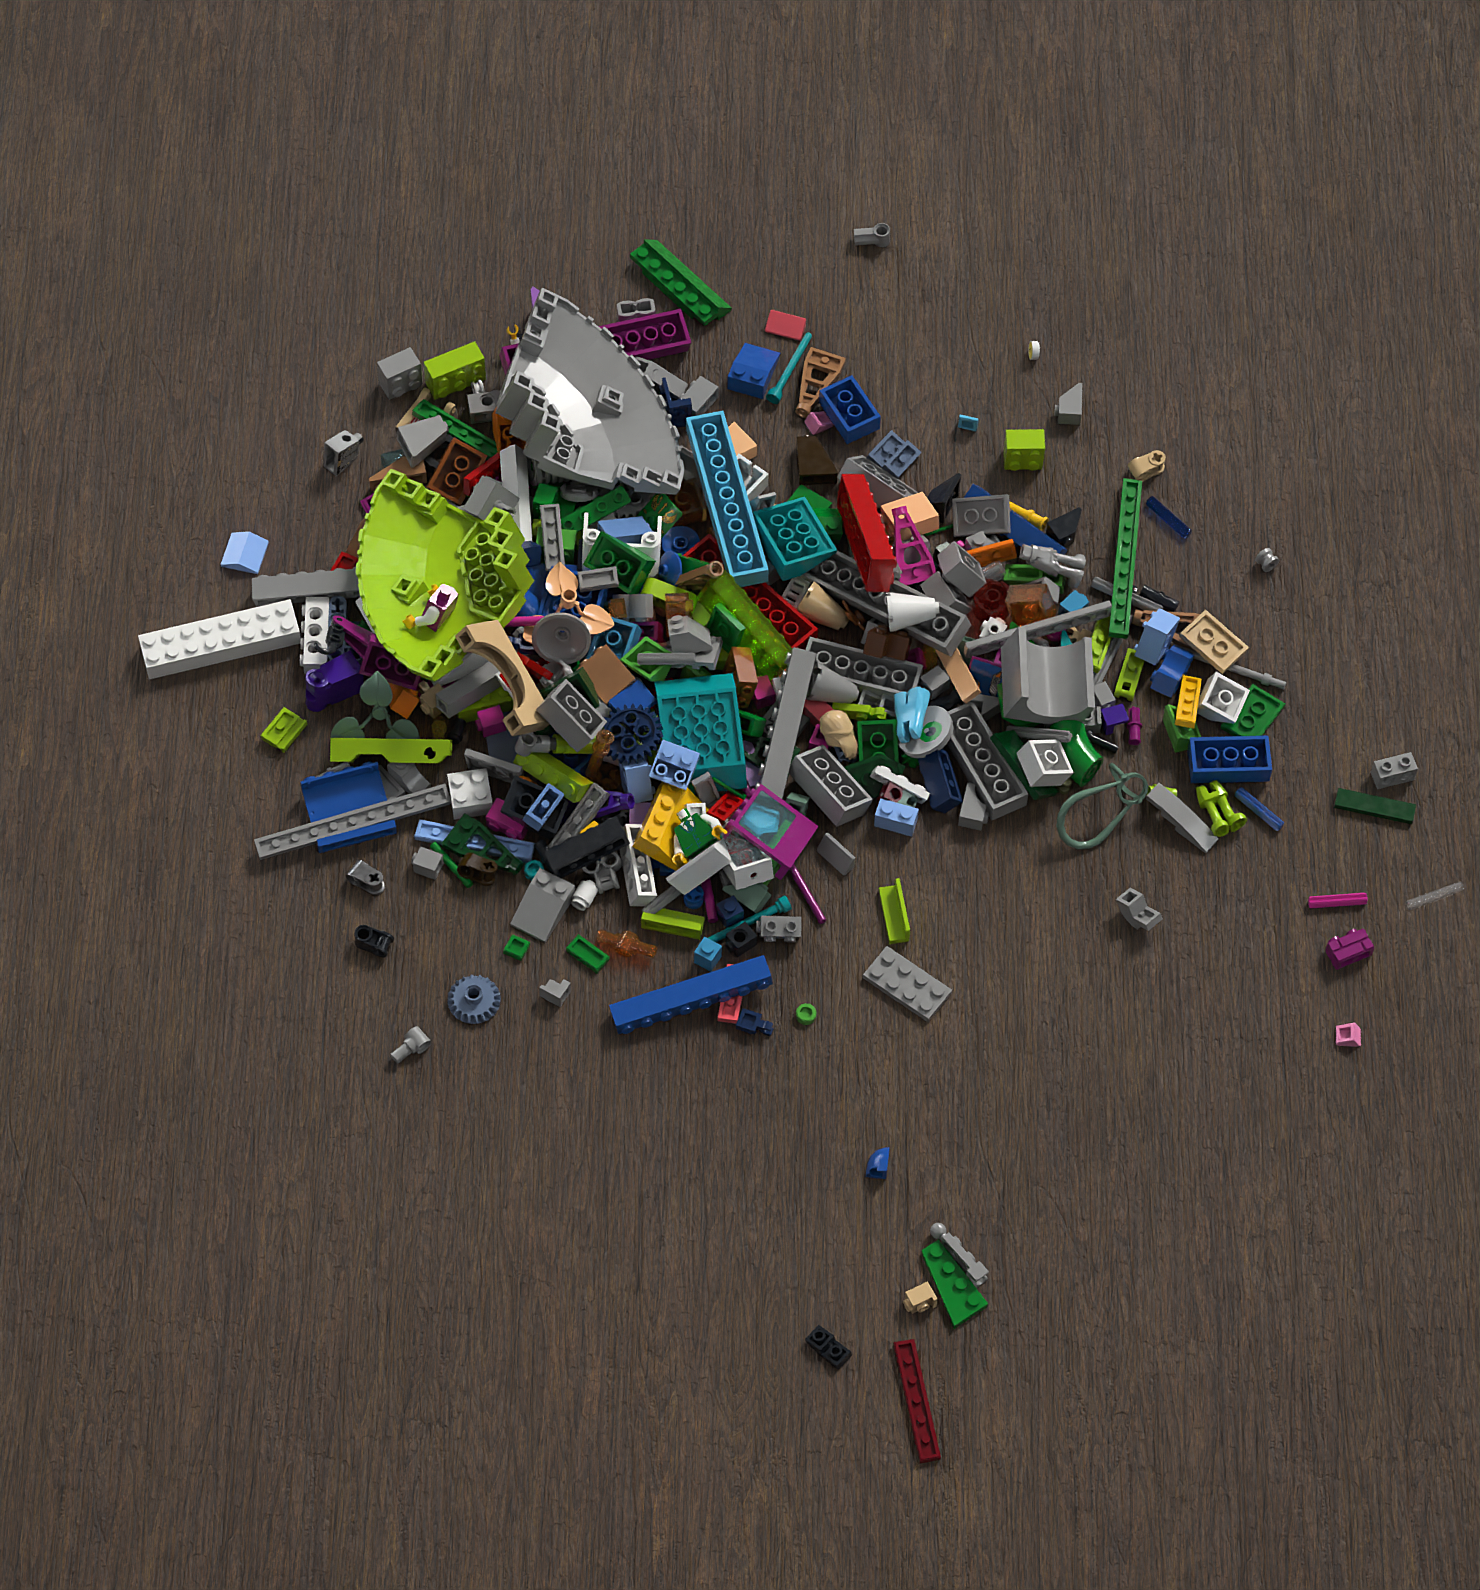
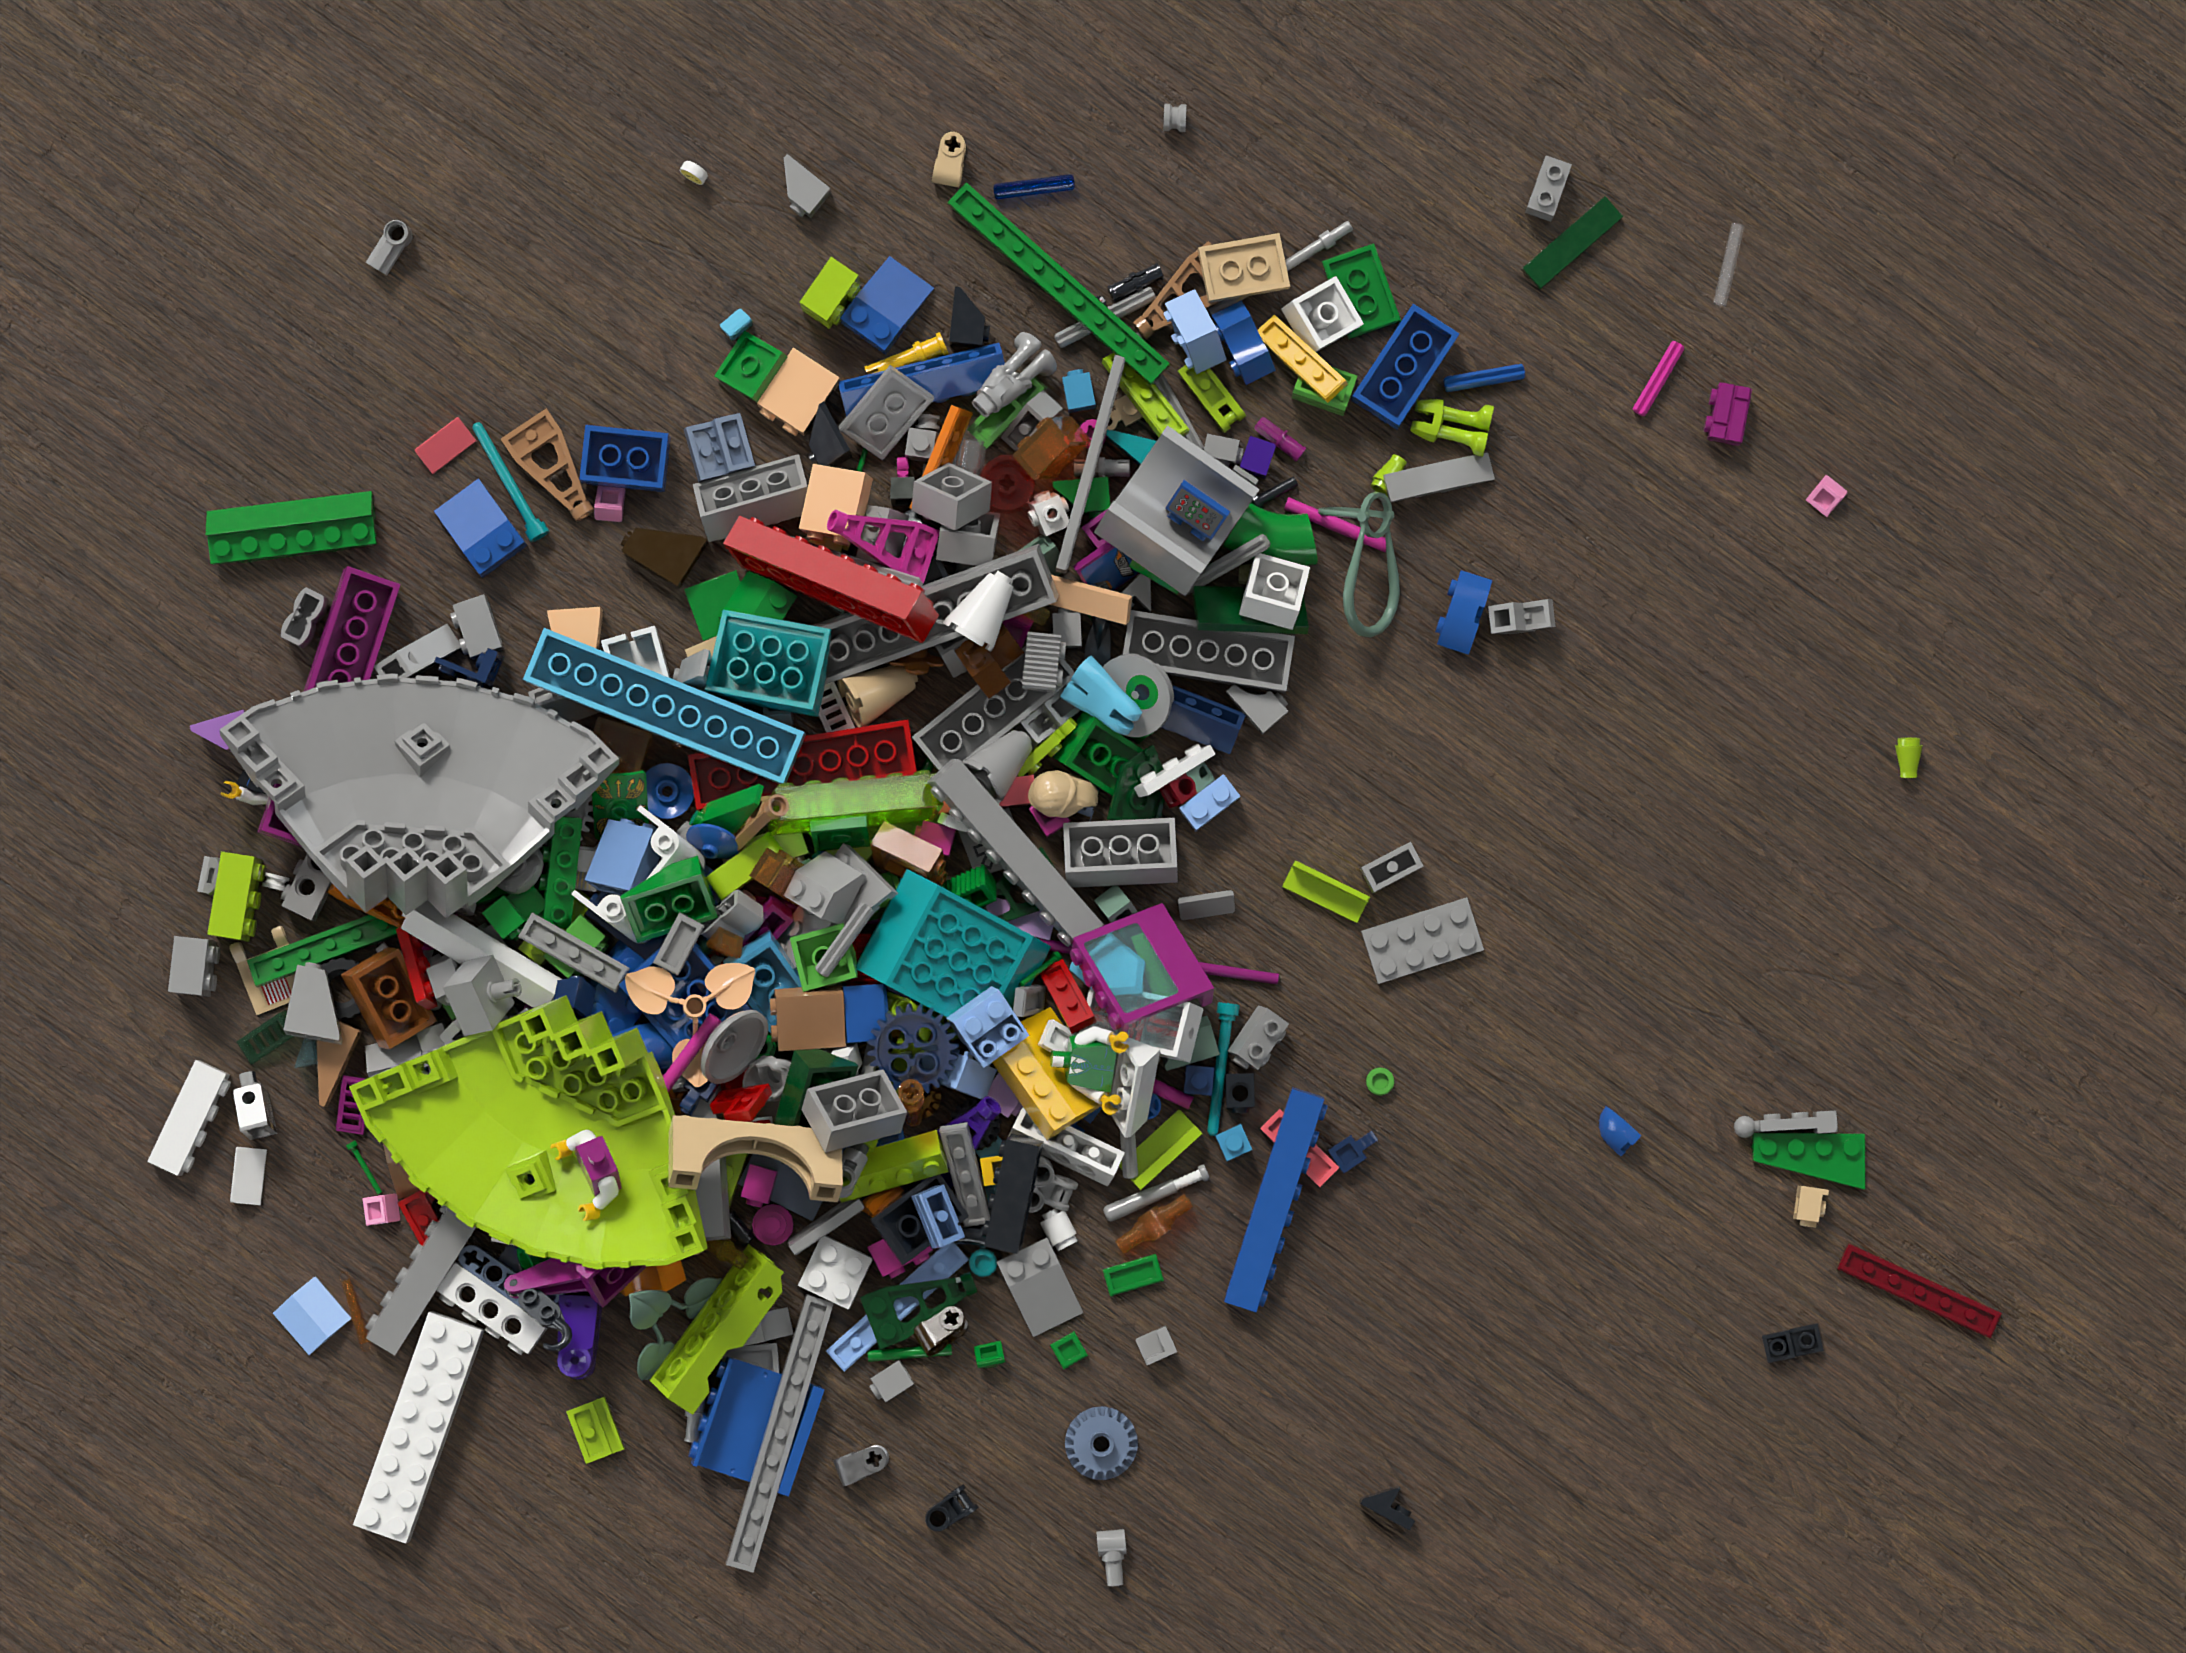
camera: 55 degrees left, 25 degrees up
(266, 568) = (356, 1311): none -> clear orange piece
(301, 473) = (248, 1175): none -> white slope
(312, 425) = (189, 1118): none -> white brick
(331, 550) = (381, 1209): none -> bright pink slope
(357, 514) = (352, 1146): none -> green piece
(380, 441) = (247, 1048): none -> clear green slope
(474, 742) = (772, 1224): none -> dark pink plate
(481, 906) = (989, 1355): none -> green slope
(554, 1174) = (1381, 1503): none -> black slope
(629, 925) = (1146, 1197): none -> light grey piece
(905, 670) = (1042, 662): none -> light grey brick
(936, 934) = (1391, 867): none -> light grey brick
(948, 463) = (797, 392): none -> light nougat panel
(951, 439) = (750, 366): none -> green tile
(1040, 485) = (886, 305): none -> blue slope
(1056, 684) = (1197, 511): none -> slope
(1108, 778) = (1333, 523): none -> dark pink piece
(1115, 879) = (1464, 612): none -> blue brick
(1236, 1177) = (1908, 756): none -> lime cone

